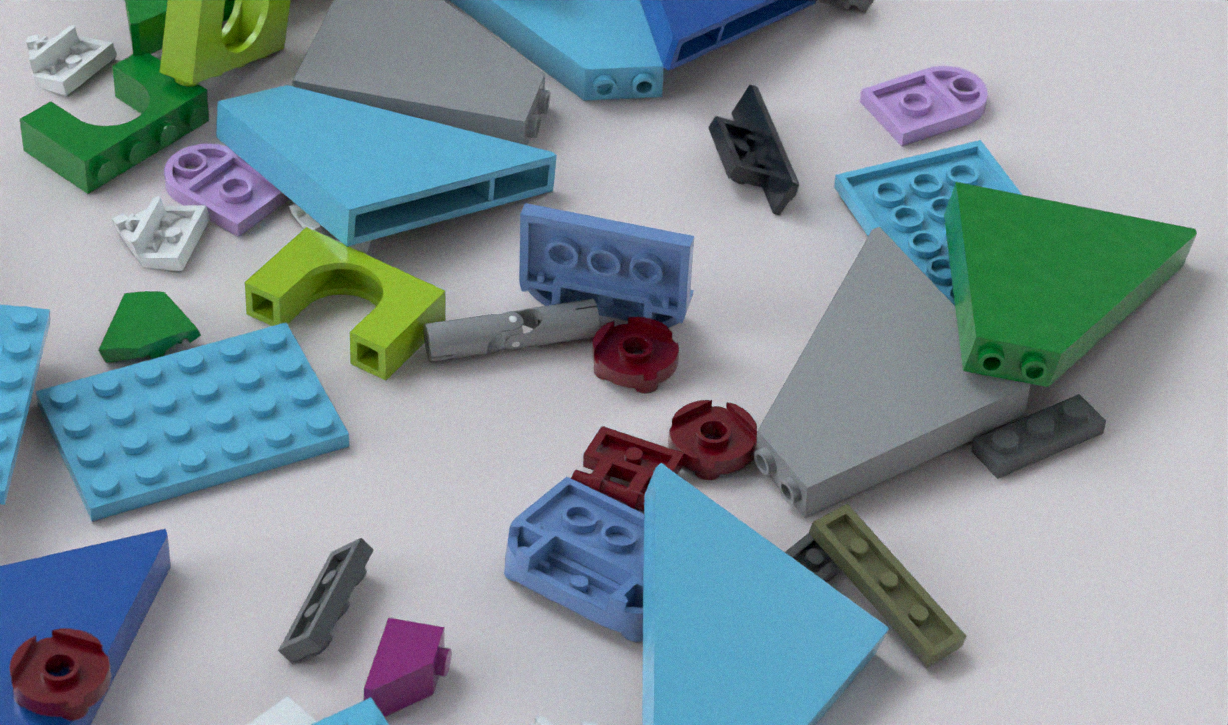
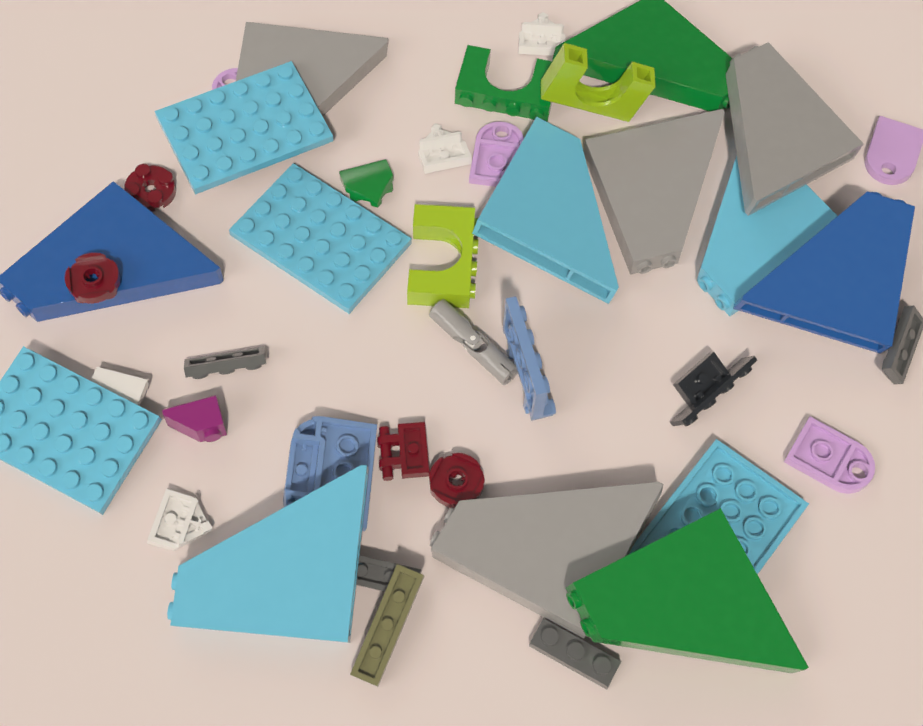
camera: 60 degrees right, 20 degrees up
(642, 371) = (498, 424): dark red plate -> none

